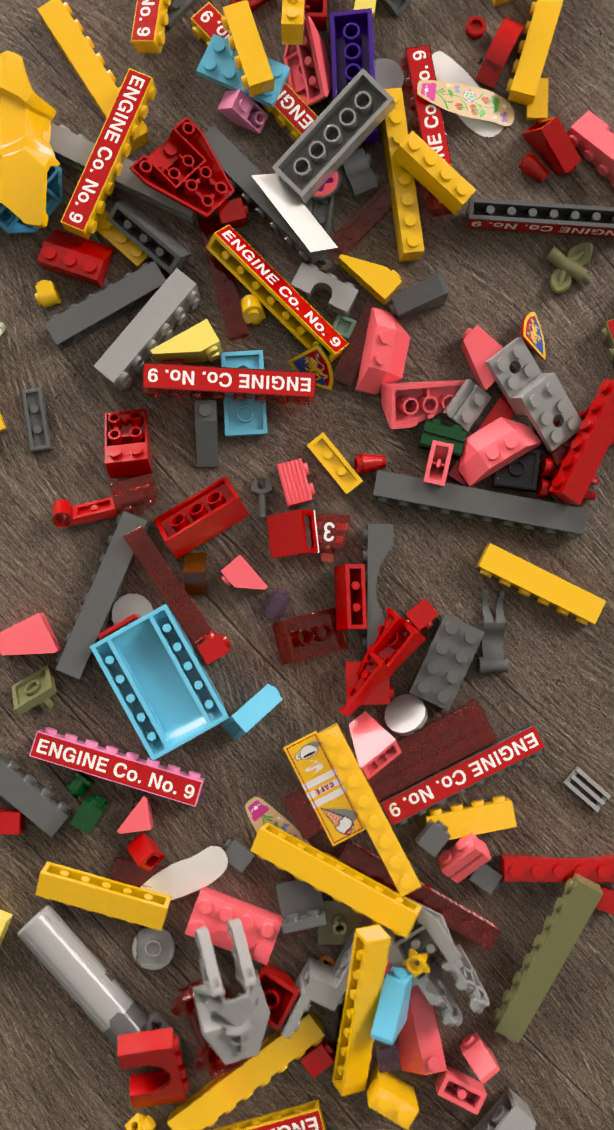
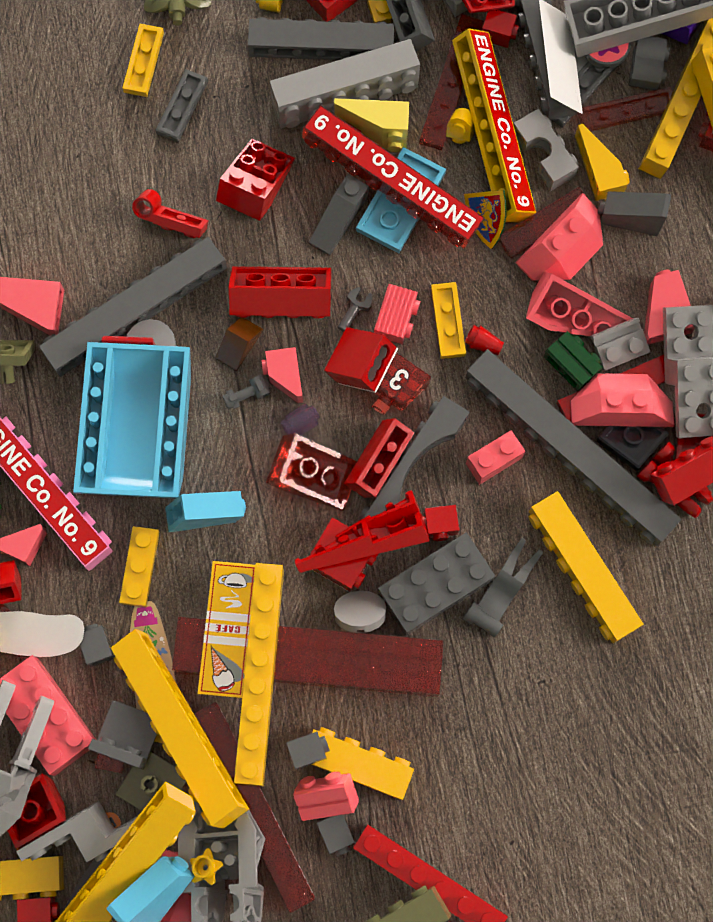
camera: 30 degrees right, 10 degrees down
(134, 492) = (230, 227): clear red brick -> none
(167, 583) = (204, 333): clear red tile -> none
(214, 647) = (209, 424): red brick -> none
(231, 598) = (259, 388): none -> dark grey bar
(231, 778) = (139, 567): none -> yellow plate
(344, 326) = (543, 195): sand green tile -> none
(372, 744) = (305, 615): slope -> none
(430, 544) = (495, 457): none -> coral brick
(438, 463) = (553, 379): coral slope -> none
(465, 772) = (380, 711): brick -> none
(601, 801) = (510, 836): light grey tile -> none

